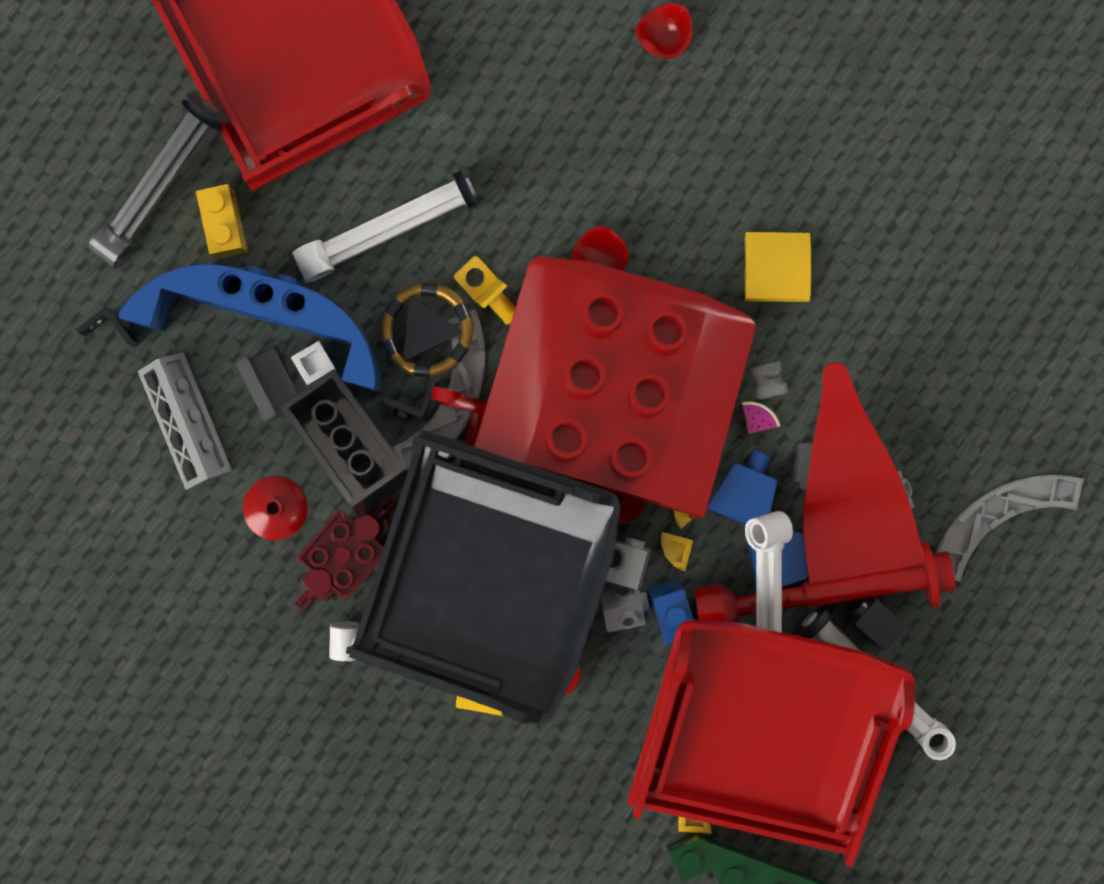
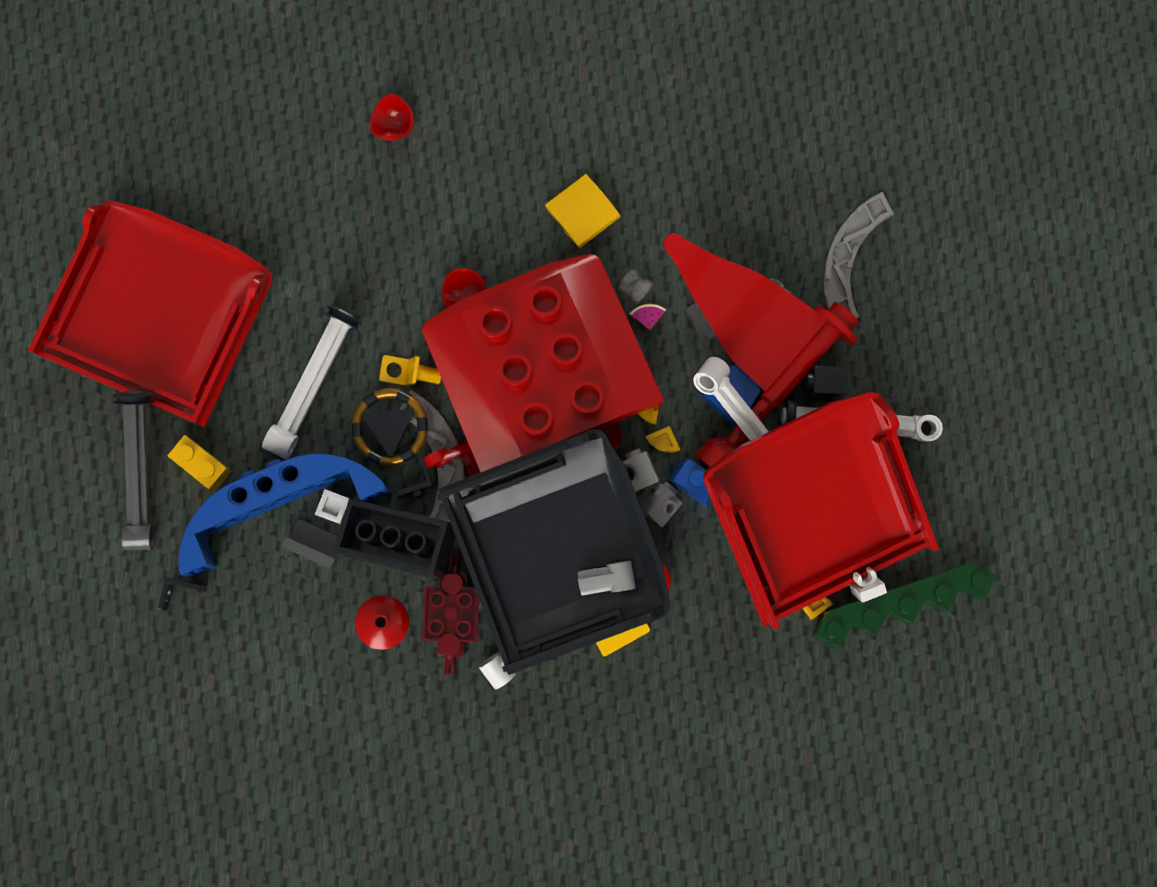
camera: 45 degrees left, 5 degrees down
(187, 417) = (277, 608): light grey fence -> none
(519, 649) = (613, 578): none -> light grey piece
(745, 490) = (676, 367): blue torso -> none
(755, 847) = (868, 587): none -> white tile

